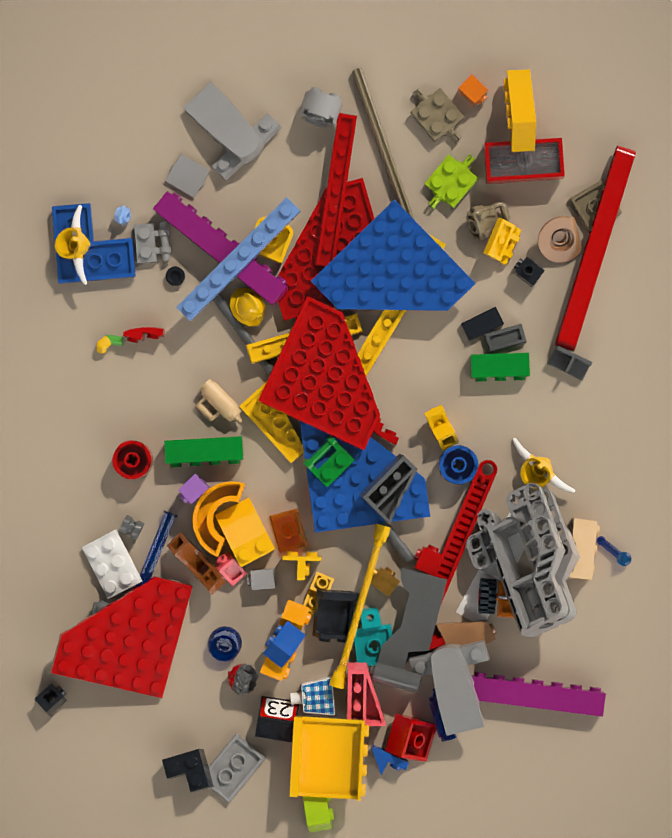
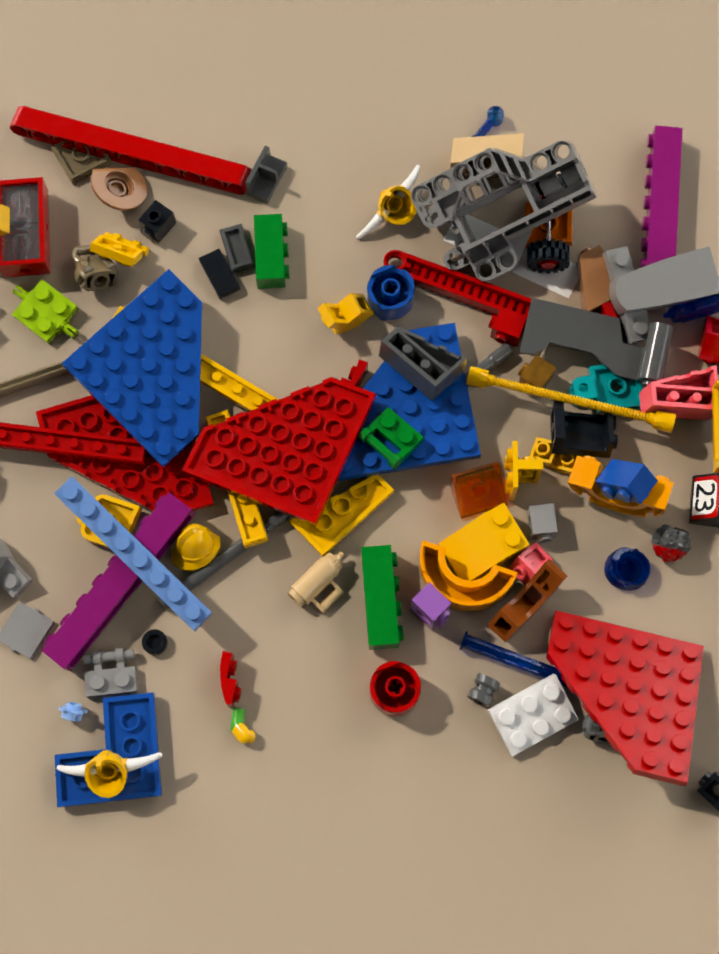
camera: 90 degrees left, 15 degrees down
(316, 697) = (685, 453): torso -> none

